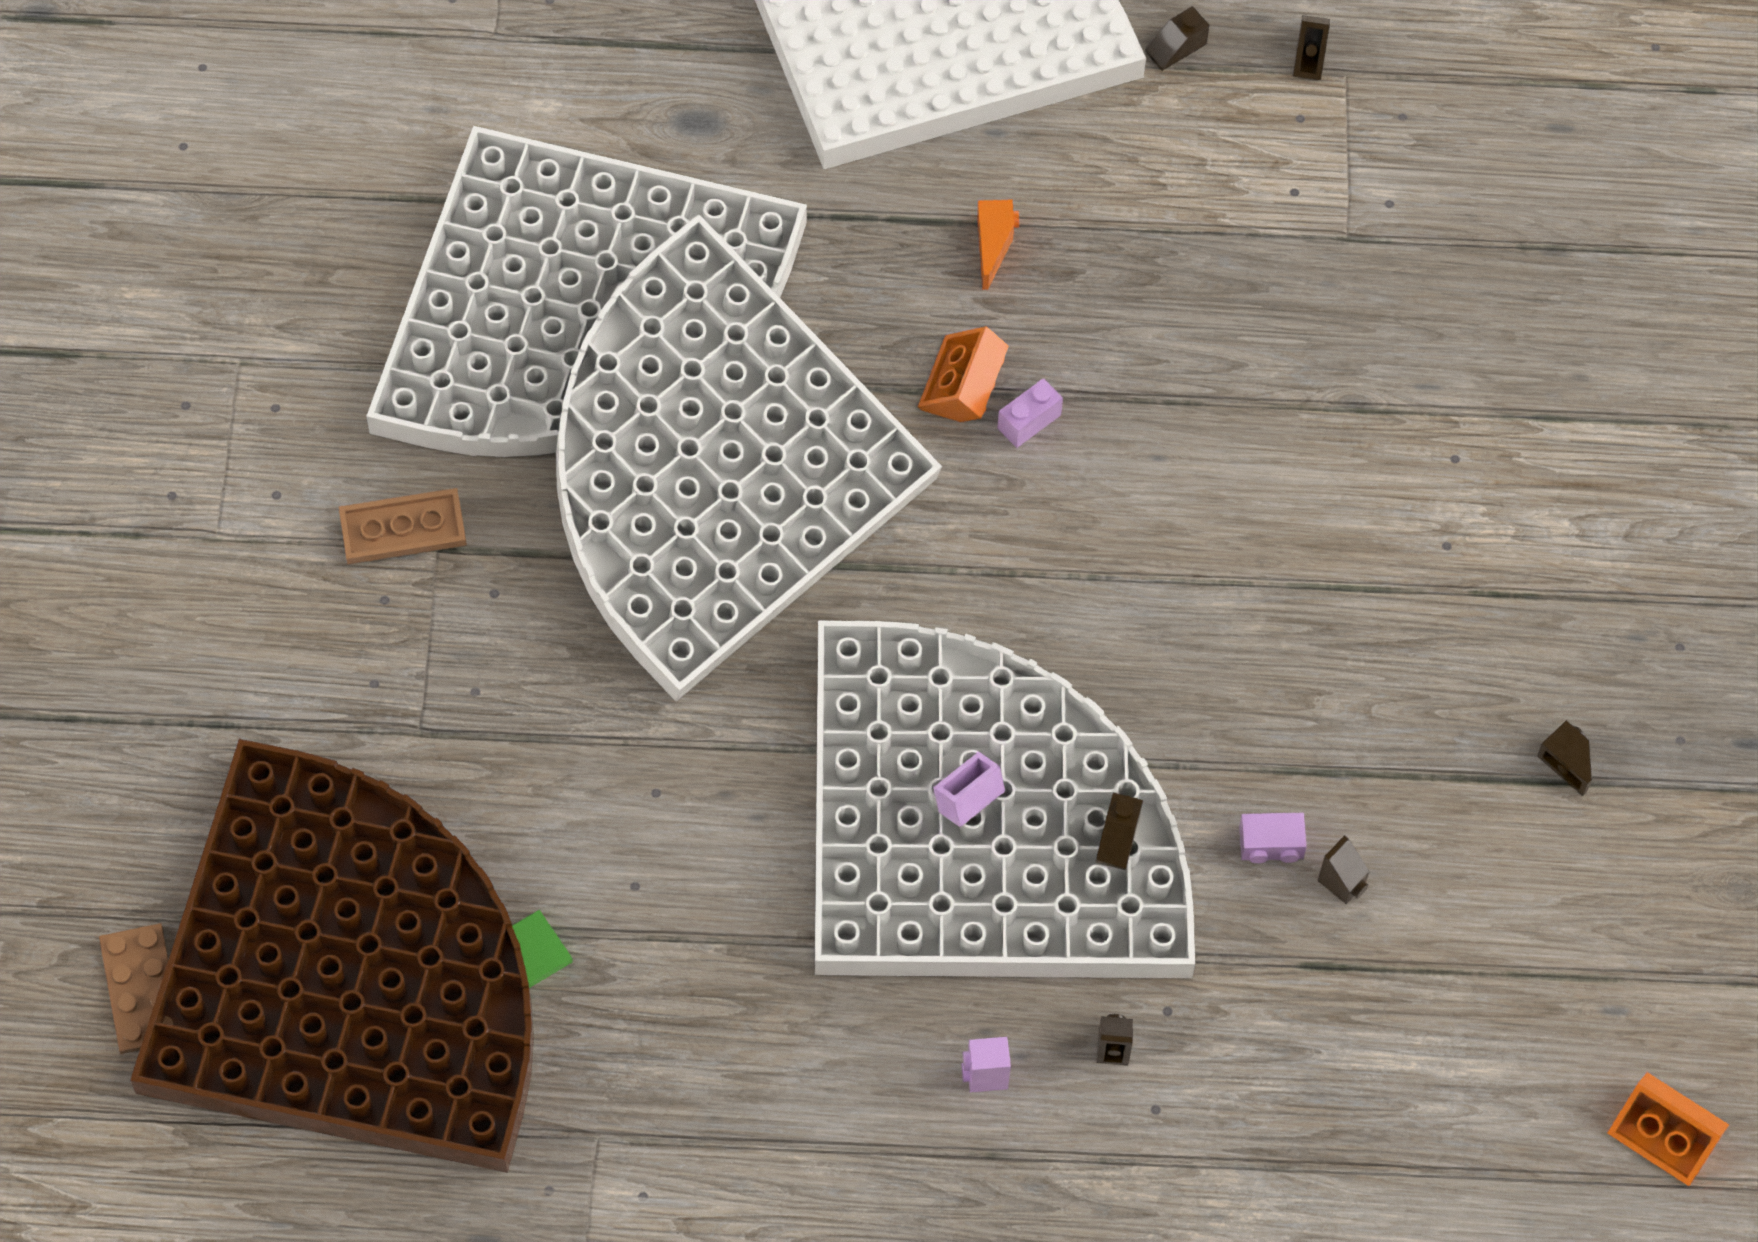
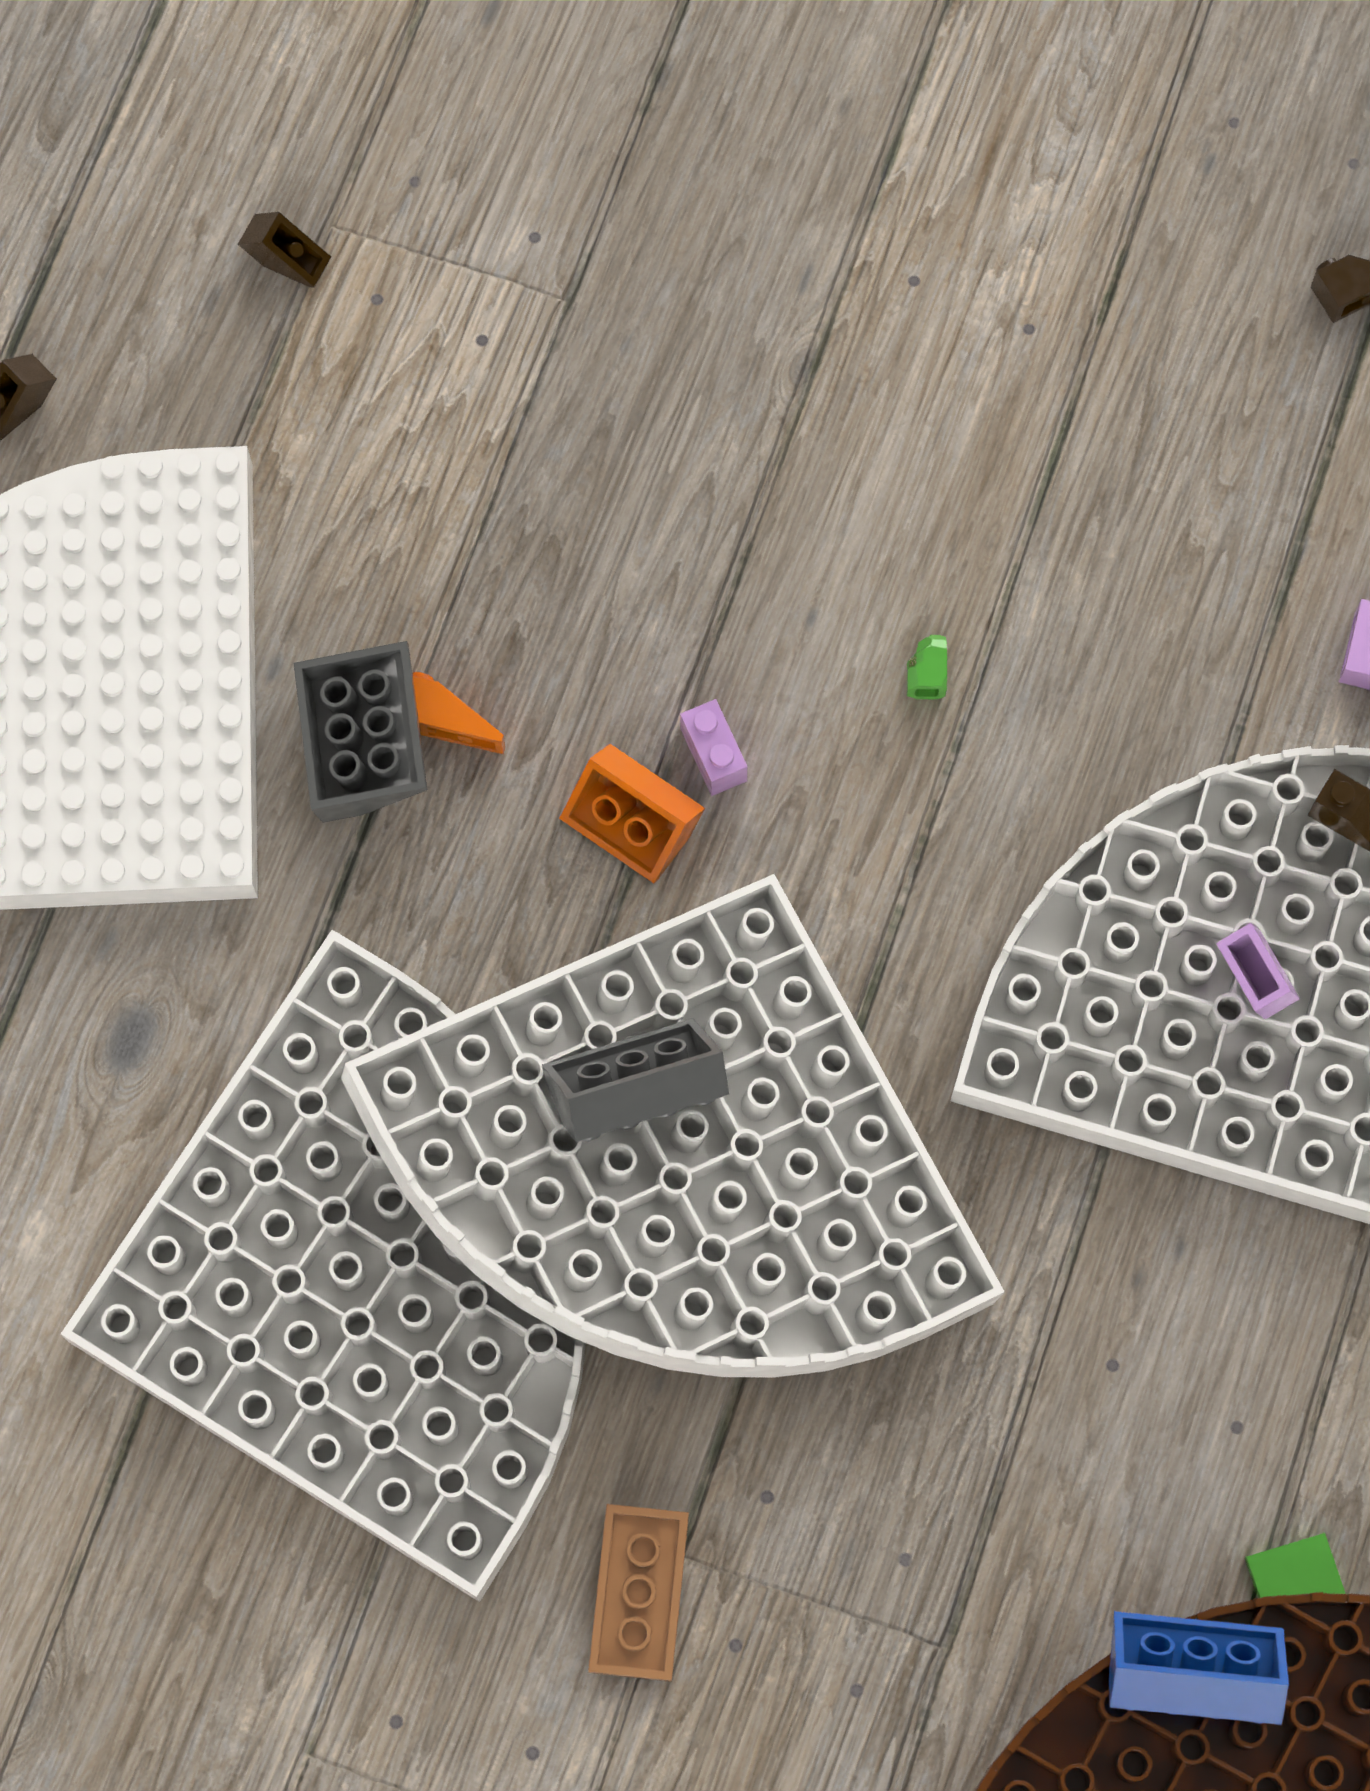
camera: 70 degrees left, 10 degrees up
(439, 868) = (1198, 1668): none -> blue slope
(748, 399) = (636, 1080): none -> dark grey slope
(957, 181) = (360, 730): none -> dark grey slope
(1143, 539) = (928, 669): none -> bright green rock
(1178, 38) = (218, 402): dark brown slope -> none

